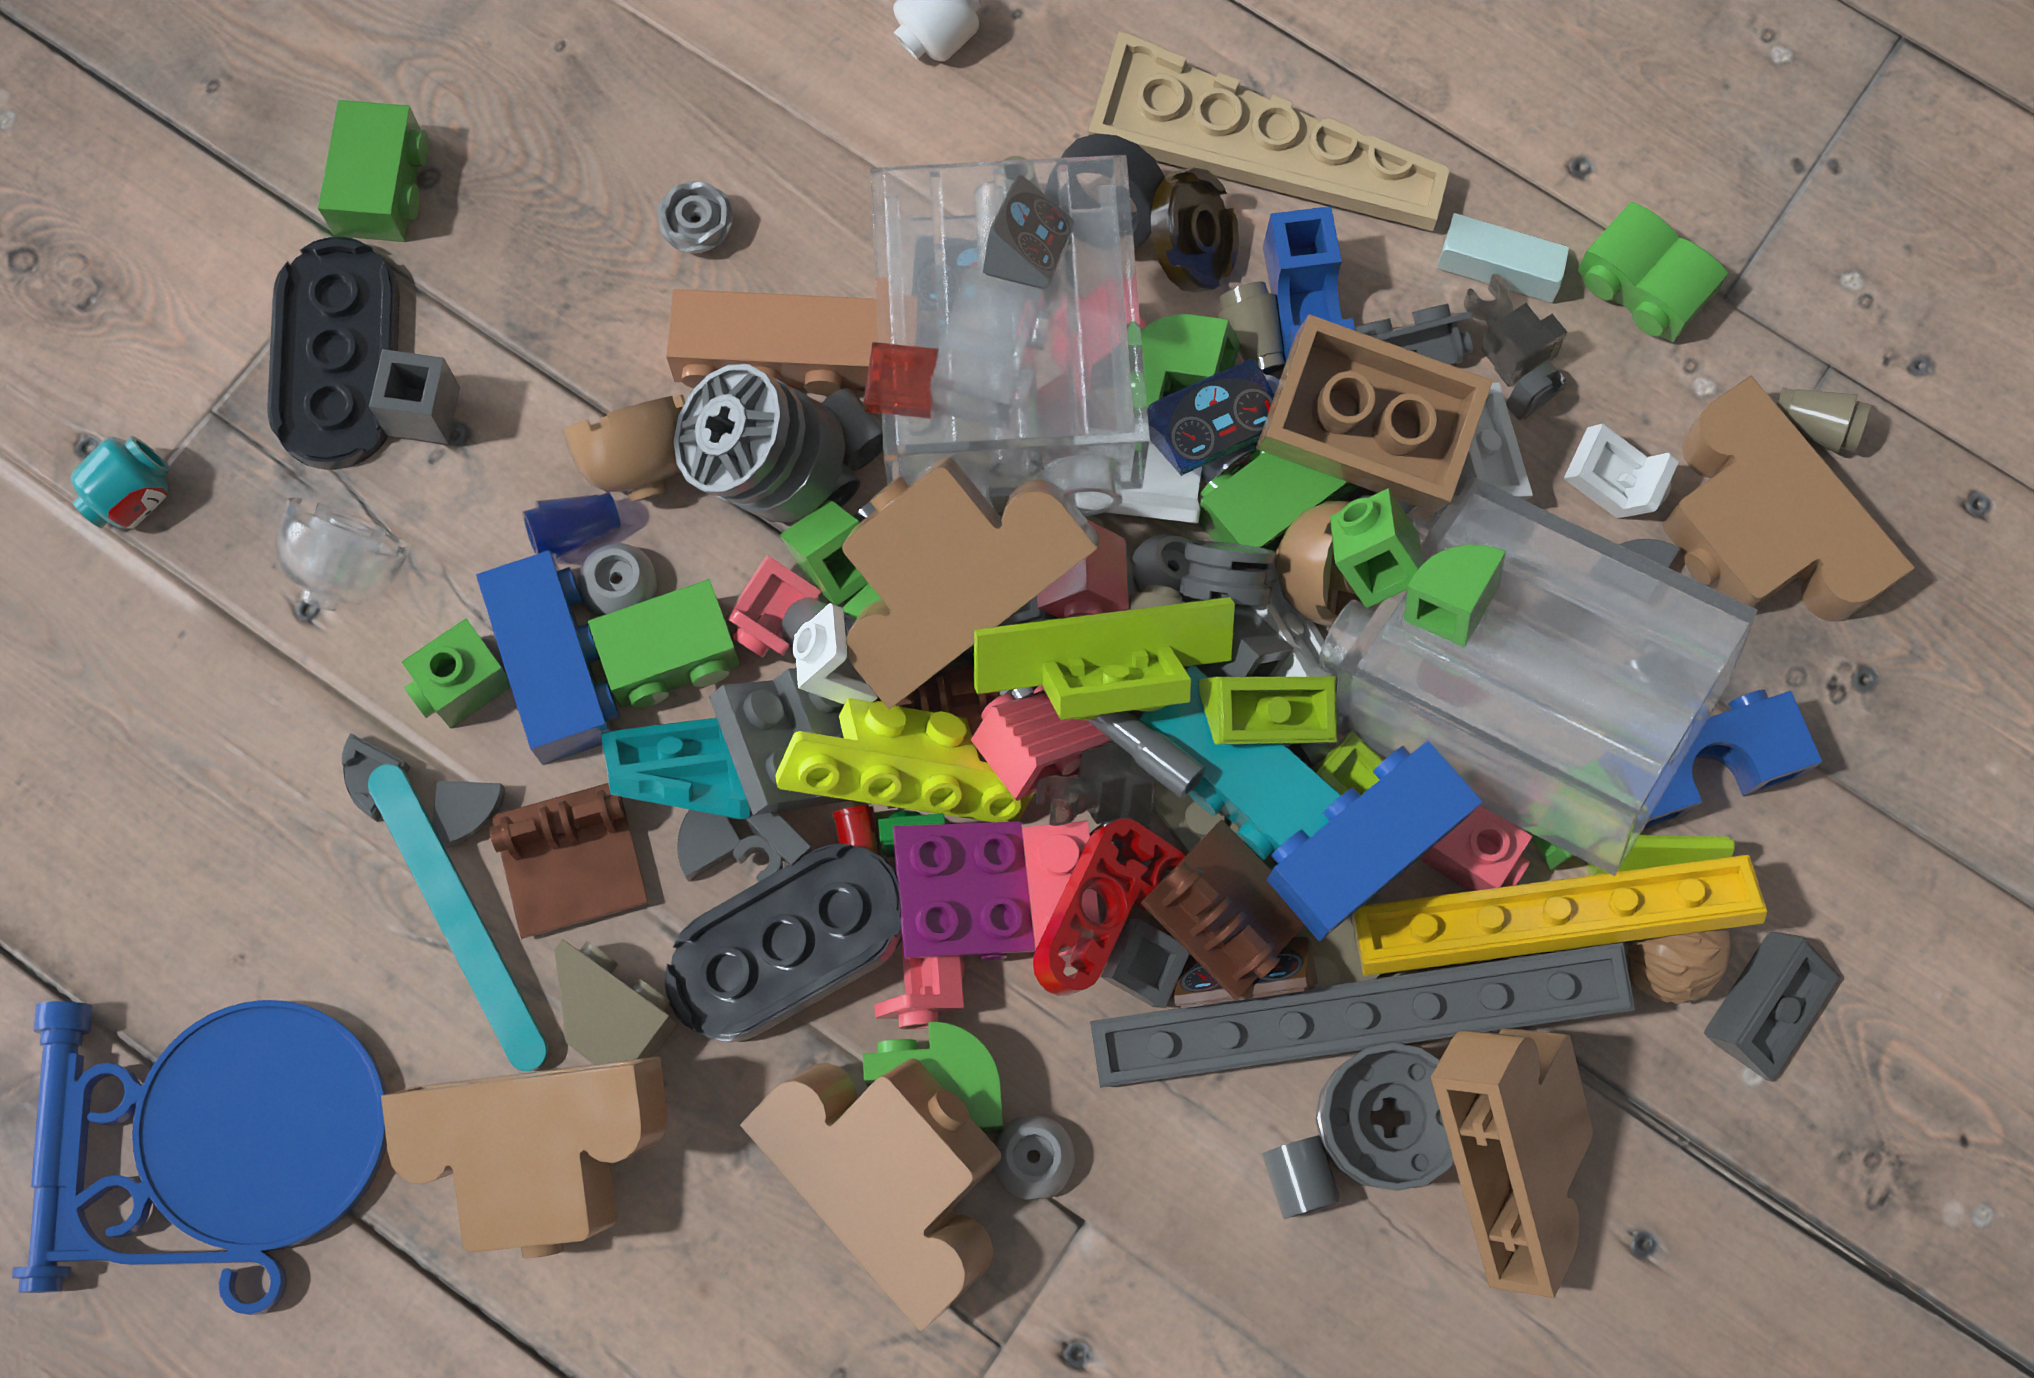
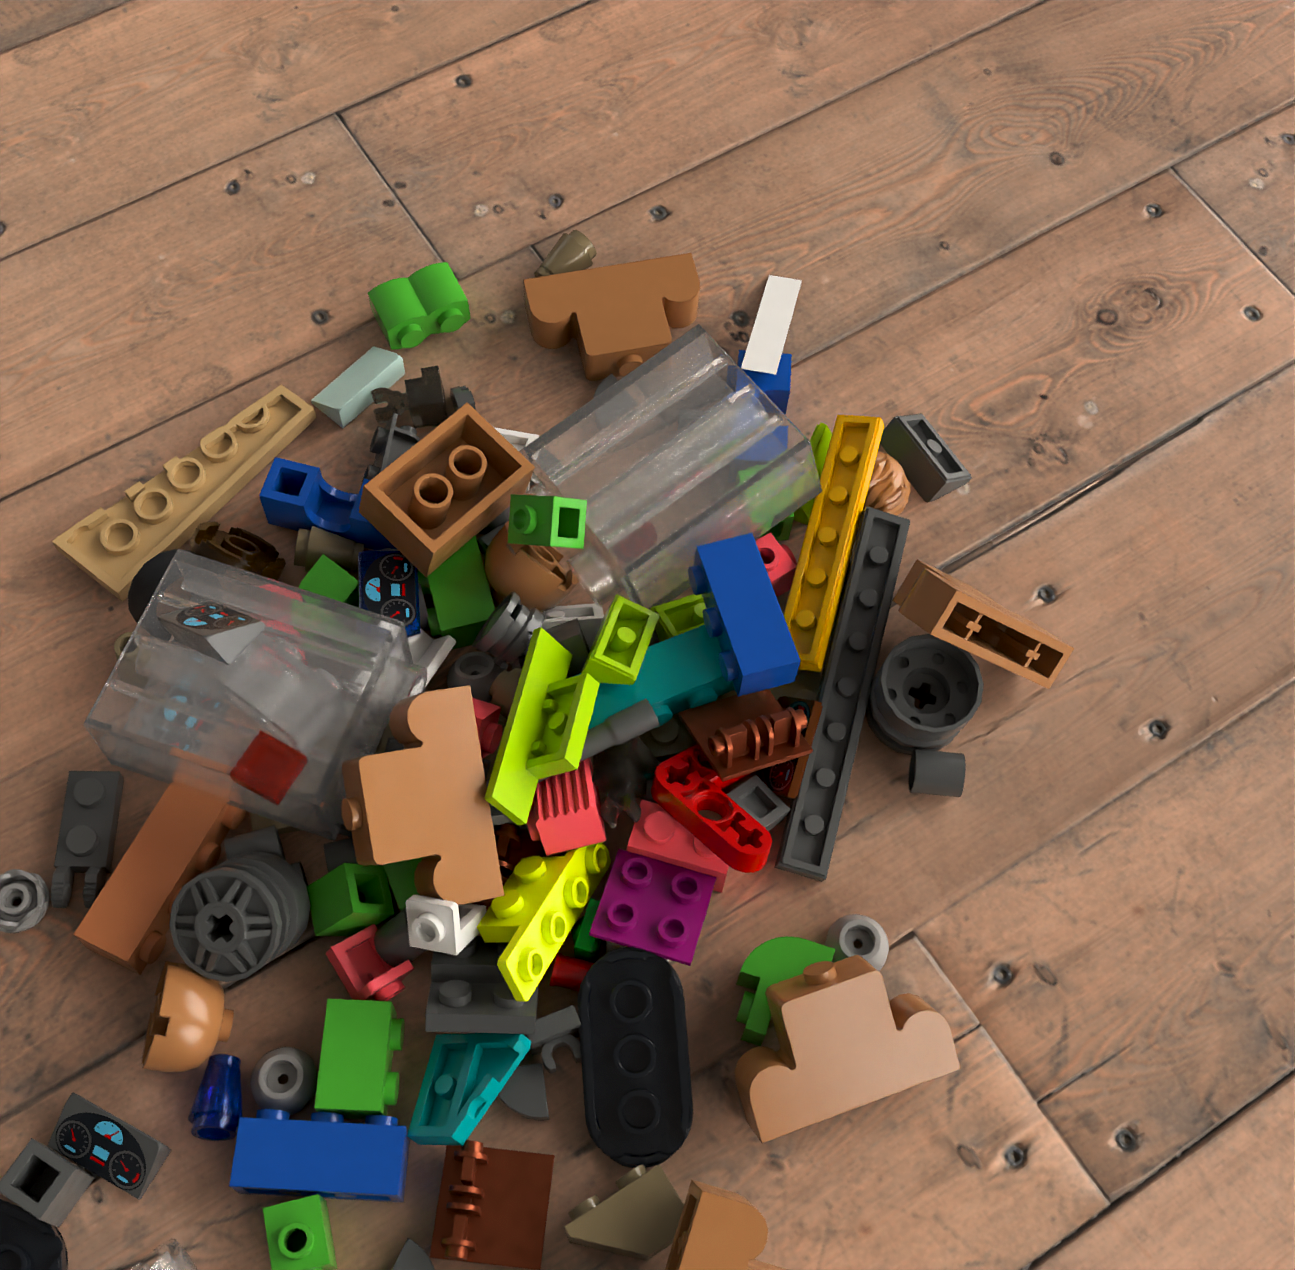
camera: 70 degrees left, 10 degrees down
(484, 440) = (107, 1146): none -> slope
(798, 248) = (86, 834): none -> dark grey hinge
(931, 990) = (711, 968): coral bracket -> none
(1454, 591) = (607, 483): bright green brick -> none
(1619, 474) = (548, 384): white bracket -> none
(1863, 719) = (771, 325): none -> white sticker

